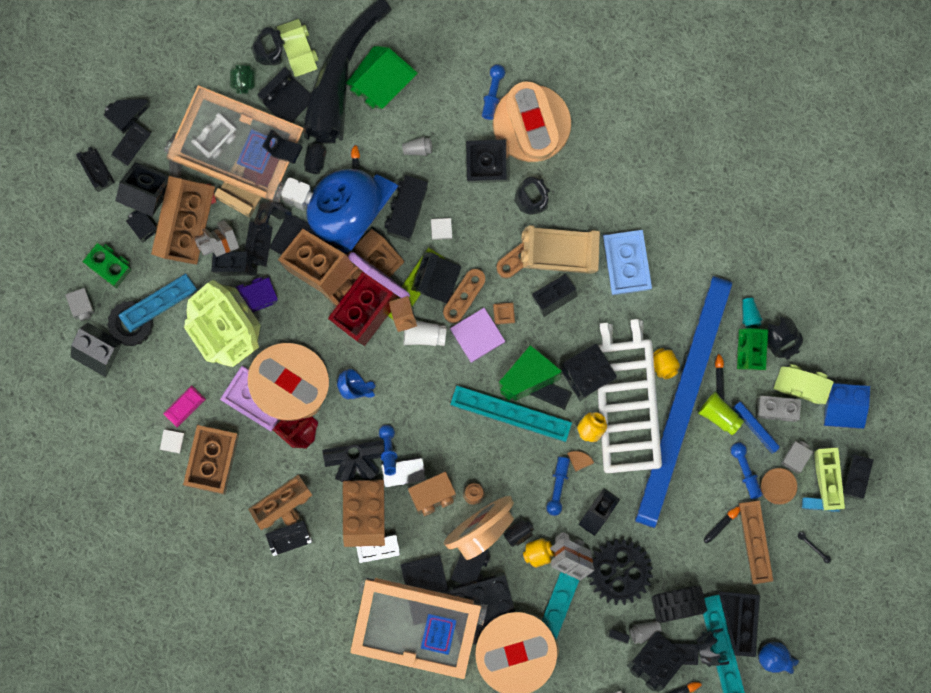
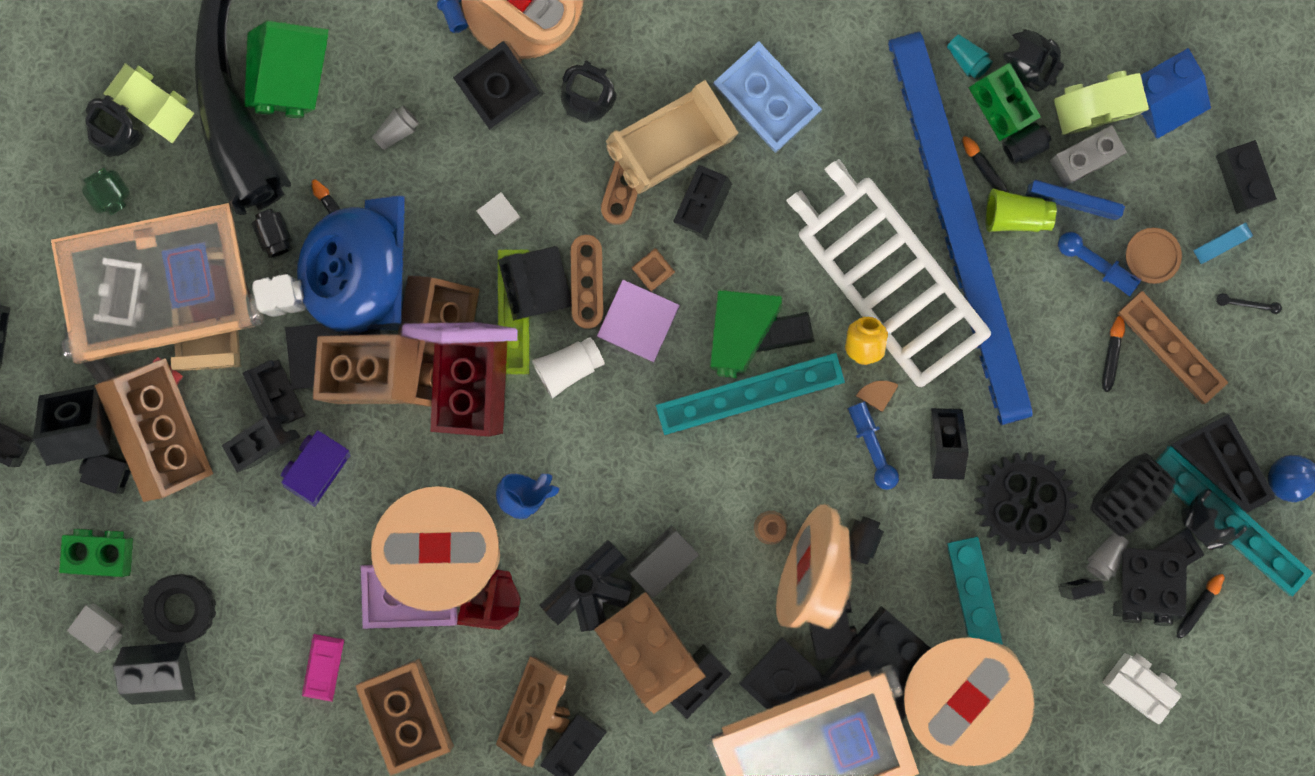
camera: 30 degrees left, 5 degrees up
(130, 144) = (17, 376): black hinge -> none
(157, 303) = (195, 560): dark azure tile -> none
(172, 441) = (338, 724): white tile -> none
(218, 241) = (217, 428): light grey hips -> none
(221, 324) = (298, 532): yellowish green piece -> none
(271, 208) = (262, 335): black bracket -> none
(282, 149) = (219, 249): black bracket -> none
(284, 96) = (176, 177): black bracket -> none
(388, 457) = (607, 526): blue pin -> none
(403, 314) = (524, 360): medium nougat brick -> none
(406, 208) = (434, 217): black brick -> none
(432, 493) = (721, 570): medium nougat brick -> none
(538, 552) = (906, 548): yellow head -> none
(572, 557) = (954, 527): light grey hips -> none
(587, 372) = (813, 273): black bracket -> none
(665, 363) = (905, 194): yellow head -> none
(750, 380) = (1027, 143): none -> black brick
(797, 456) = (1152, 202): light grey brick -> none
(829, 478) = (1214, 202): yellowish green slope -> none

